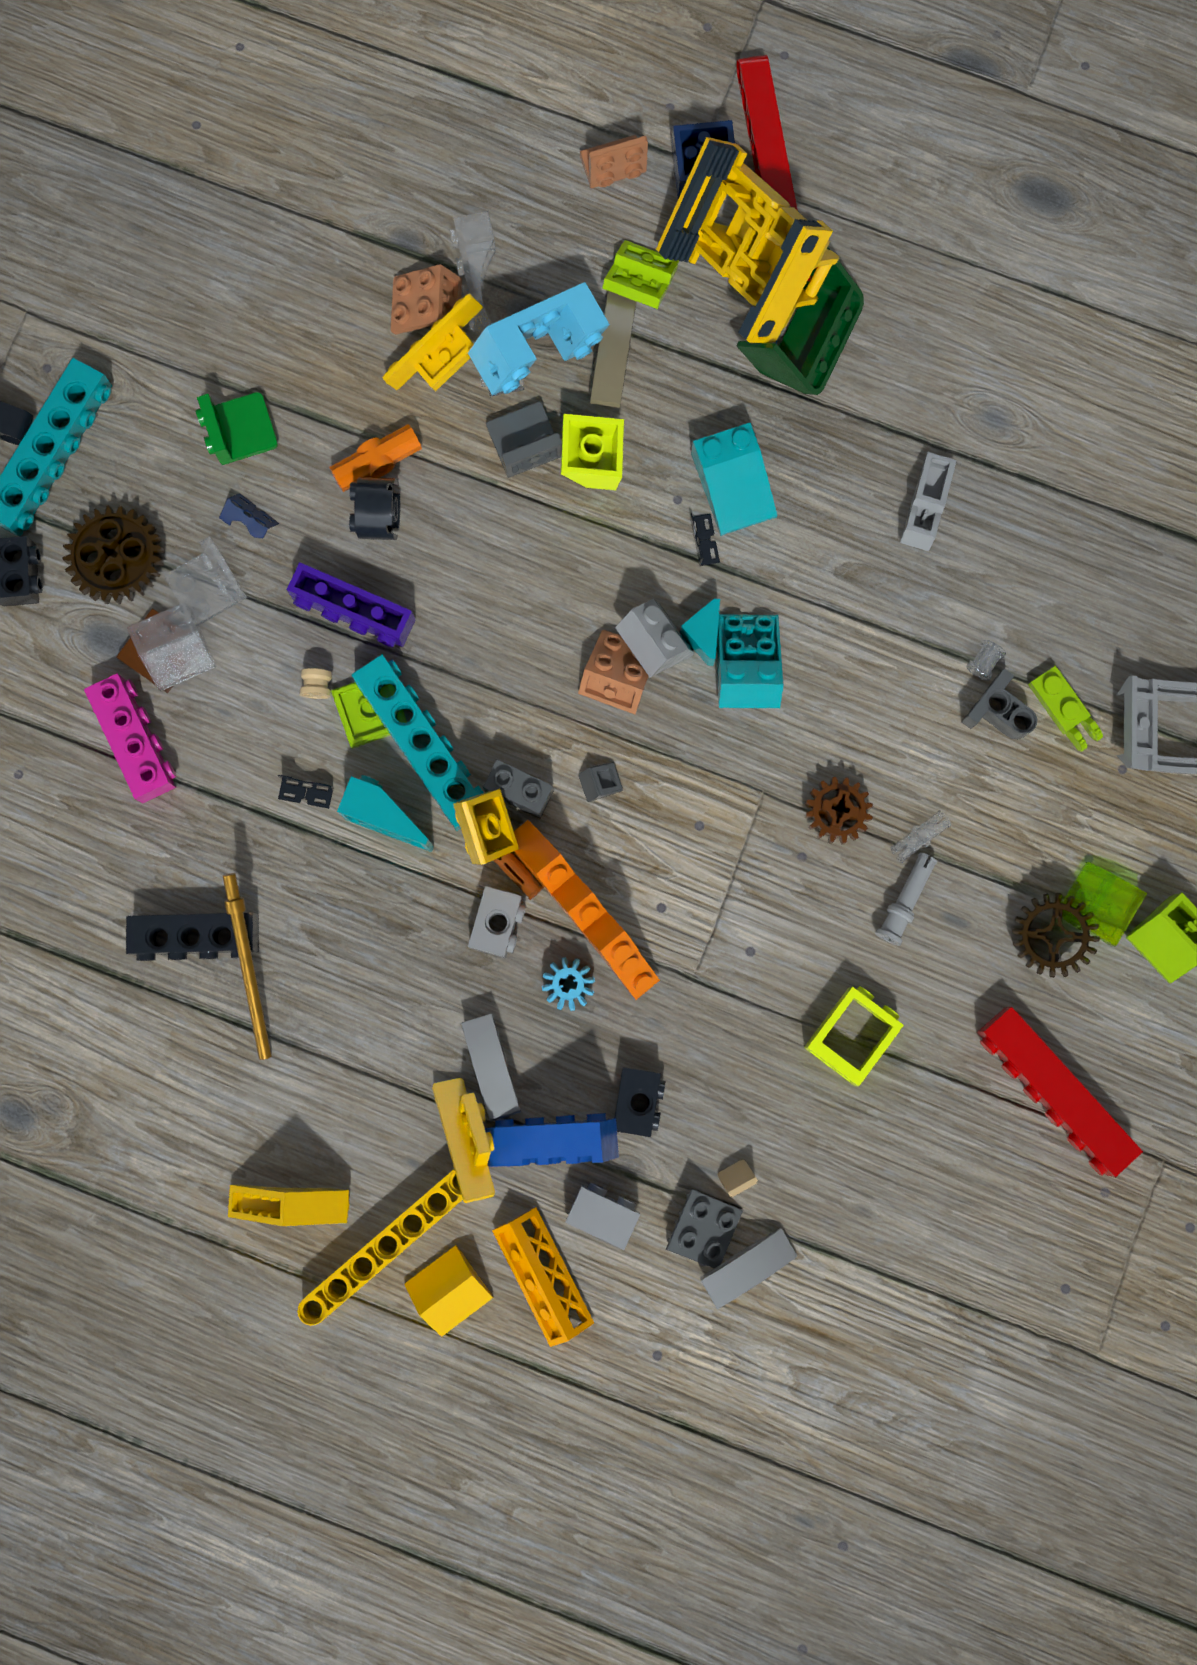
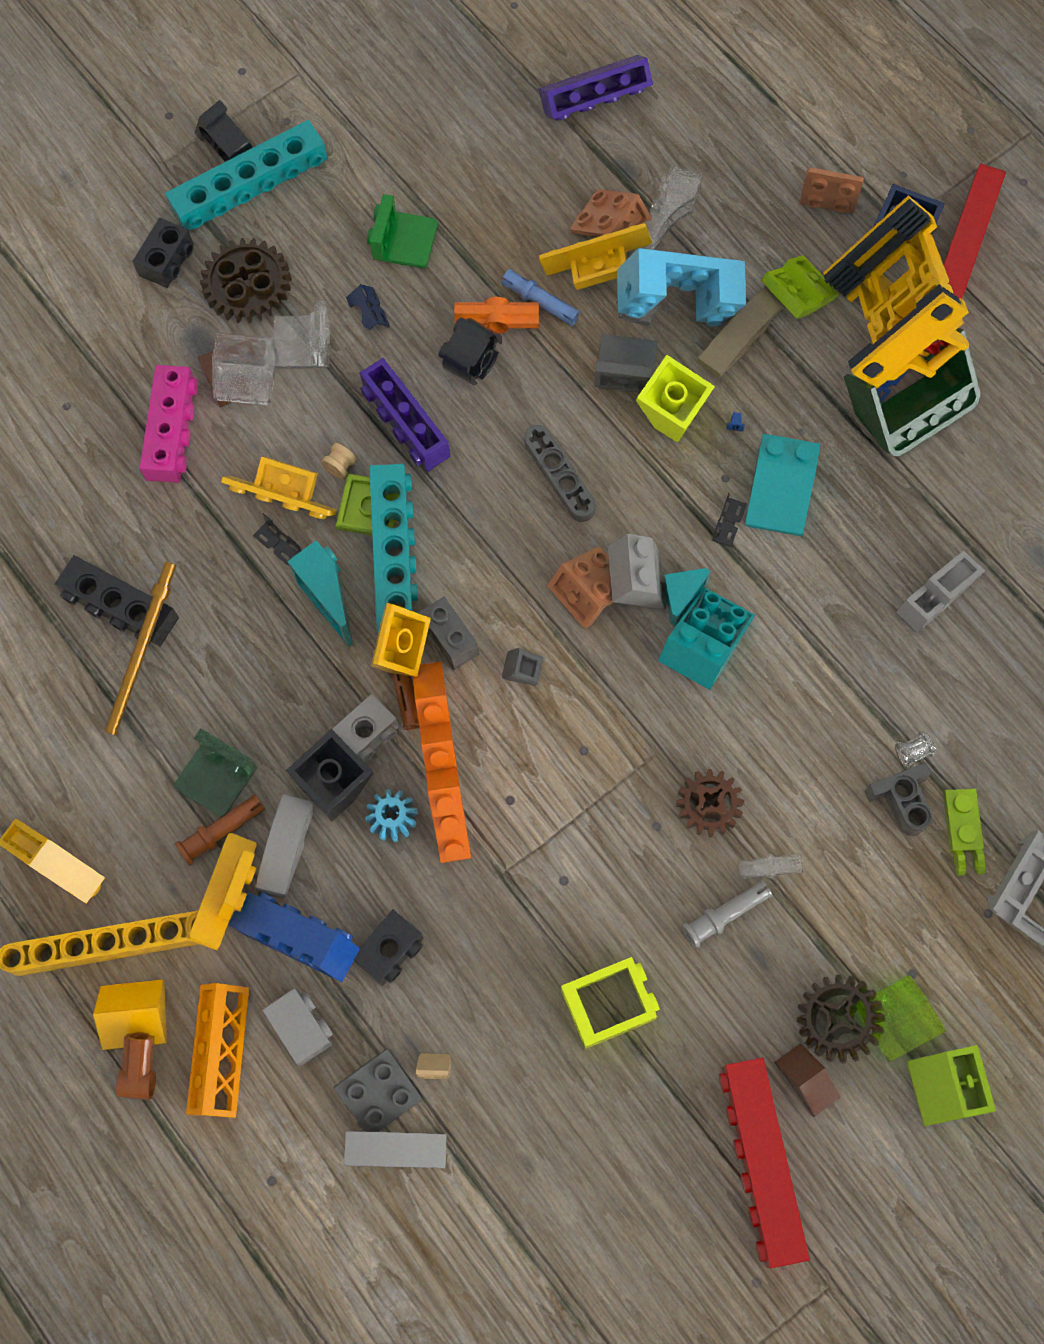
camera: 35 degrees right, 10 degrees down
(276, 736) = (283, 483): none -> yellow bracket
(332, 172) = (596, 86): none -> dark purple brick
(387, 1041) = (215, 774): none -> clear green bracket
(397, 416) = (531, 292): none -> medium blue pin
(416, 1099) = (206, 837): none -> dark orange pin
(487, 1340) = (136, 1076): none -> dark orange piece
(494, 980) = (330, 774): none -> black slope
(527, 577) = (562, 471): none -> dark grey beam
(657, 441) = (735, 422): none -> blue piece
(1053, 1000) = (808, 1079): none -> reddish brown slope

